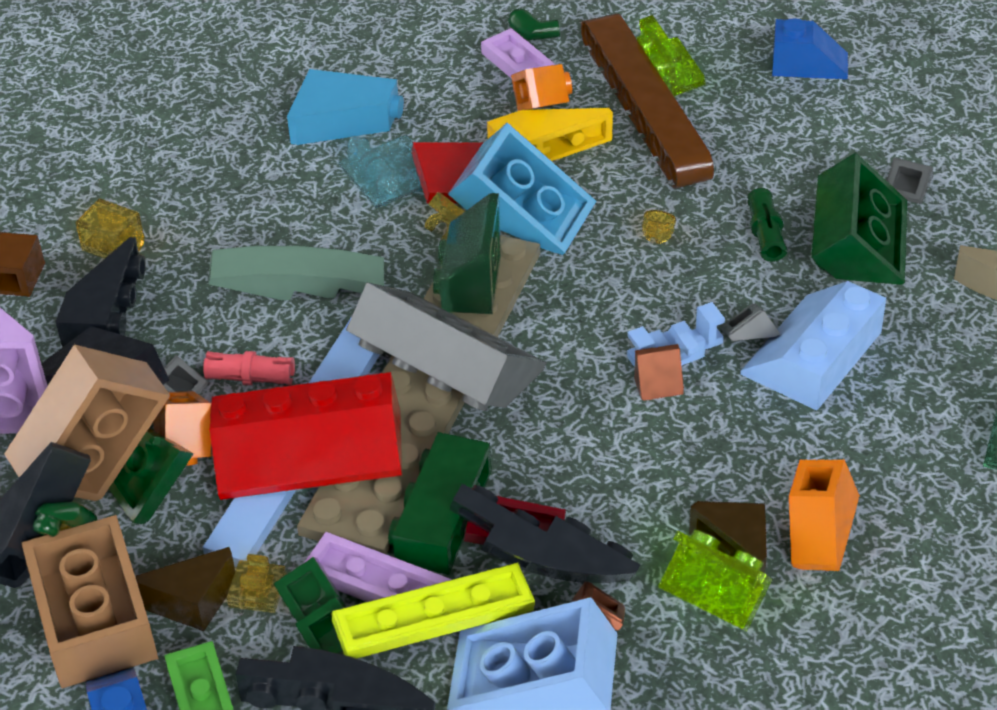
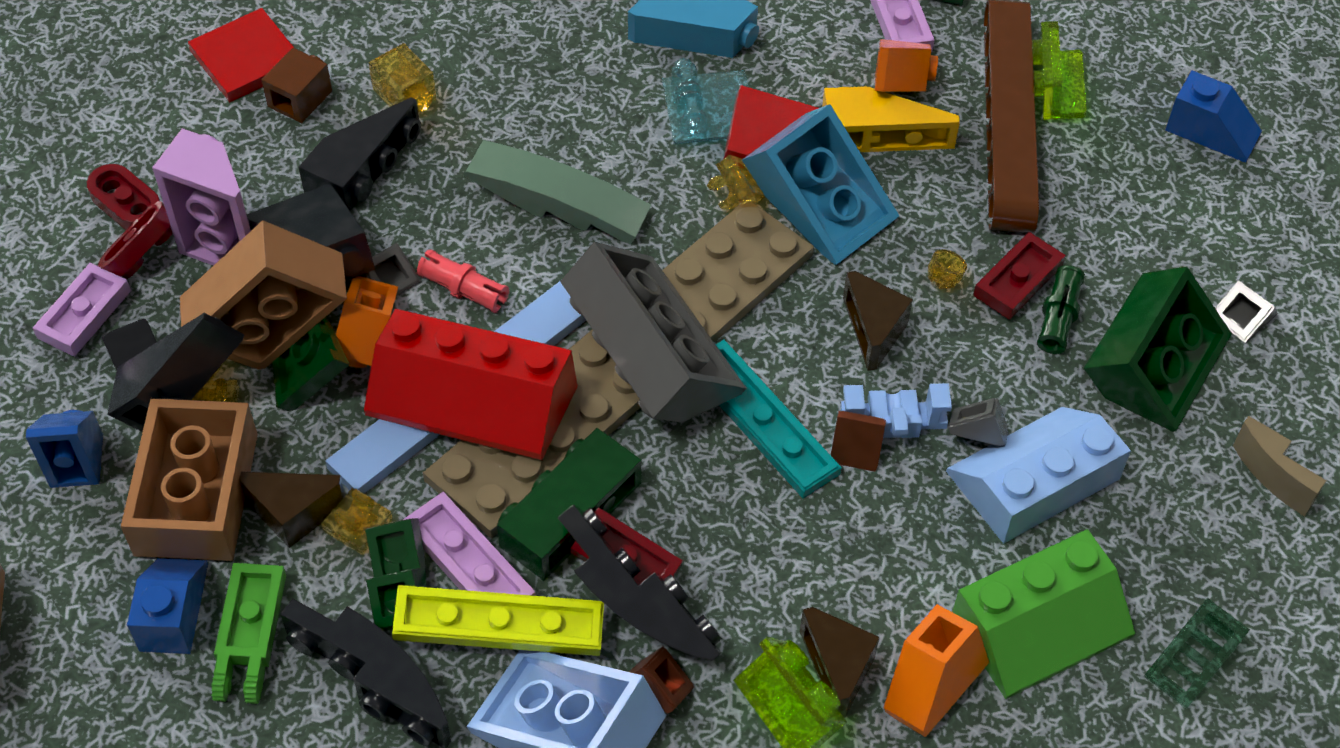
camera: 20 degrees right, 10 degrees up
(53, 514) = (204, 386): dark green arm -> none
(470, 259) = (722, 248): clear green slope -> none
(589, 393) = (777, 431): none -> teal tile
(619, 276) = (876, 316): none -> dark brown slope
(719, 211) = (1019, 275): none -> dark red plate
(888, 440) = (1047, 612): none -> bright green slope

